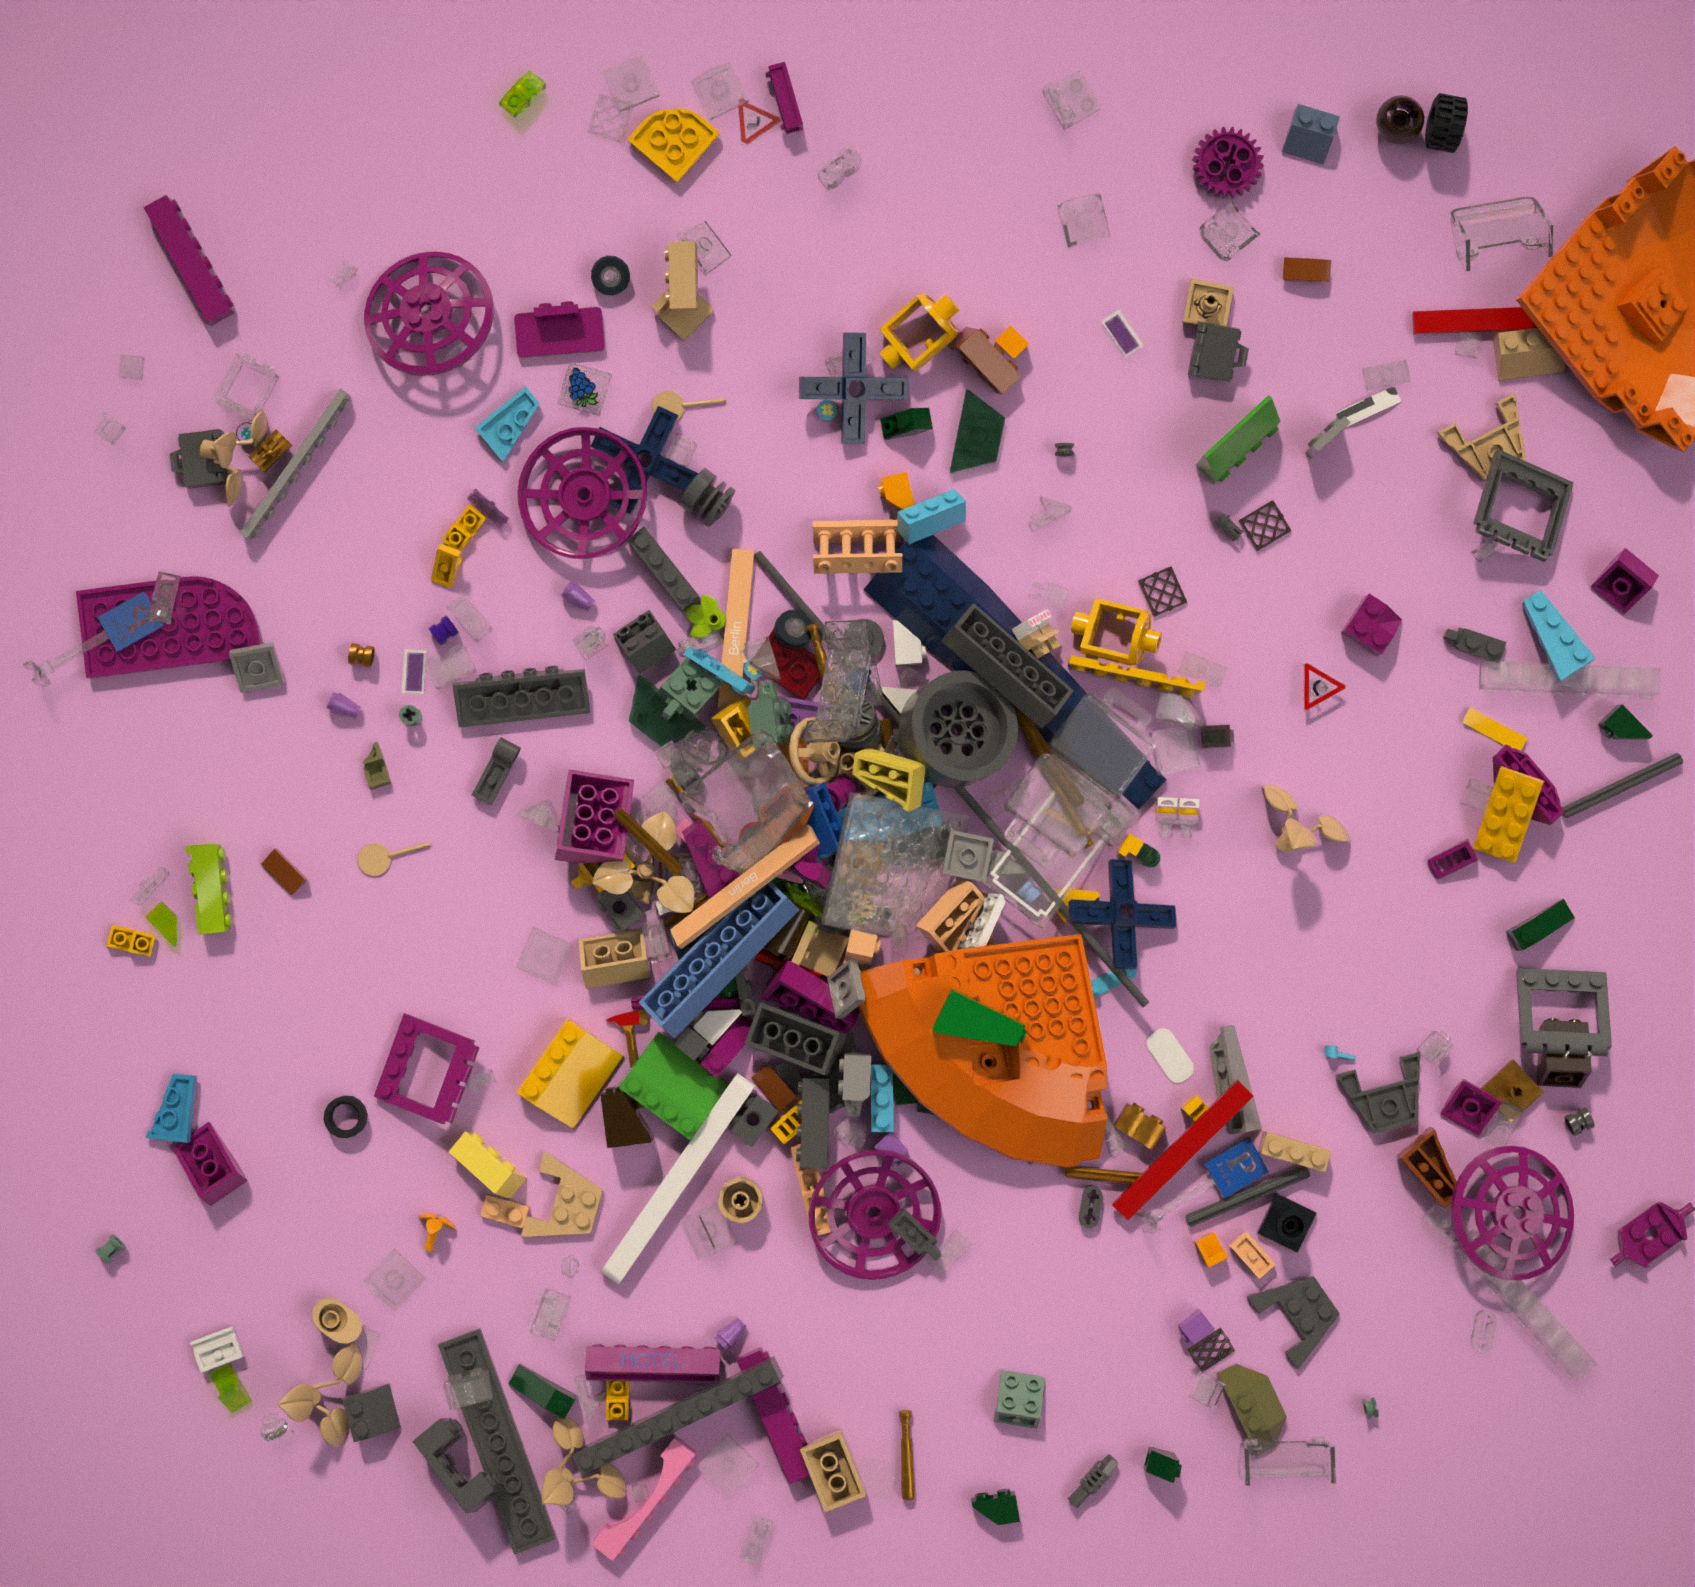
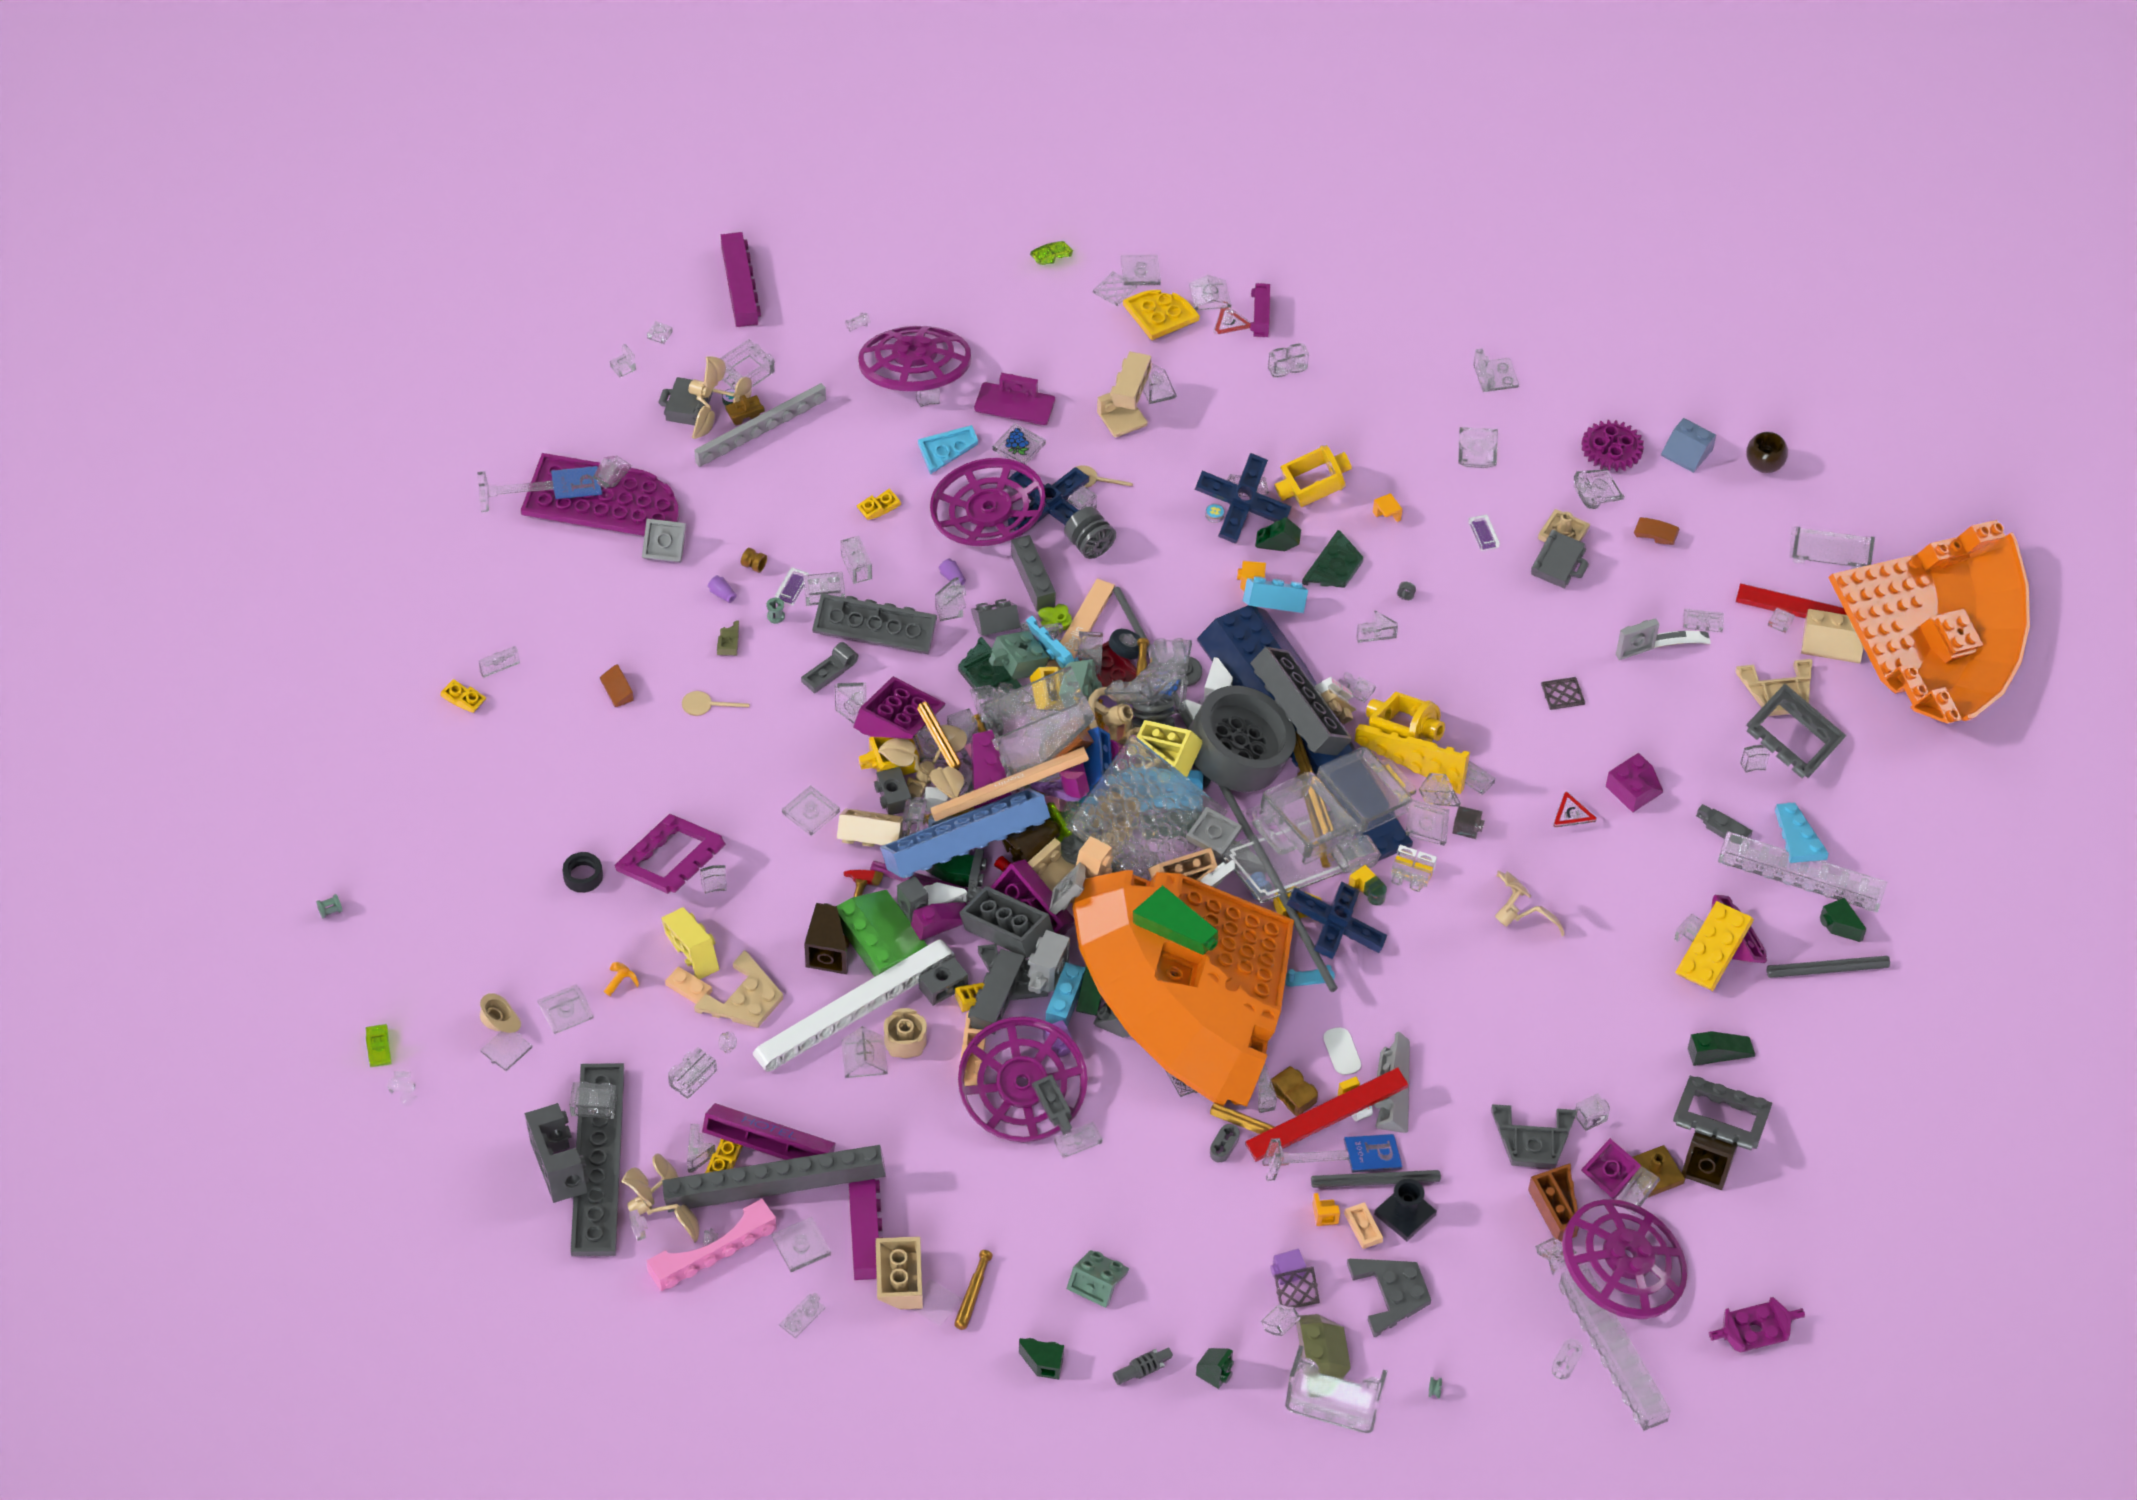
camera: 20 degrees right, 35 degrees down
(165, 921) = (497, 691): clear neon green slope -> none
(176, 1112) = (437, 828): dark azure wing -> none
(209, 888) = (548, 674): lime wedge -> none
(209, 1164) = (448, 871): magenta slope -> none
(217, 1349) = (382, 1009): white plate -> none
(303, 1398) = (440, 1042): tan plant -> none
(371, 1412) = (494, 1099): dark grey slope -> none
(443, 630) = (830, 562): dark purple wheel -> none
(446, 565) = (852, 519): yellow slope -> none
(488, 508) = (904, 496): clear purple pin -> none
(543, 1391) = (660, 1133): dark green slope -> none
(570, 1073) = (788, 895): yellow slope -> none
(610, 275) = (1072, 377): black wheel -> none
(730, 1334) = (849, 1139): medium lavender cone -> none
(774, 1087) = (972, 962): dark orange slope -> none
(850, 1134) = (1026, 1009): clear brick -> none
(852, 532) = (1202, 598): light nougat fence -> none
(985, 359) = (1361, 510): wedge -> none
(1148, 596) = (1454, 700): clear smoke window -> none
(1229, 527) = (1530, 682): dark grey pin -> none
(1240, 440) = (1559, 615): bright green slope -> none
(1294, 1151) = (1431, 1151): tan brick -> none
(1332, 1052) = (1493, 1091): medium azure hand -> none
(1446, 123) = (1805, 462): black tyre -> none
(1456, 866) = (1663, 981): magenta slope -> none
(1494, 729) = (1714, 887): yellow sticker -> none
(1579, 1121) = (1712, 1211): dark grey wheel -> none
(1625, 581) = (1872, 816): magenta slope -> none

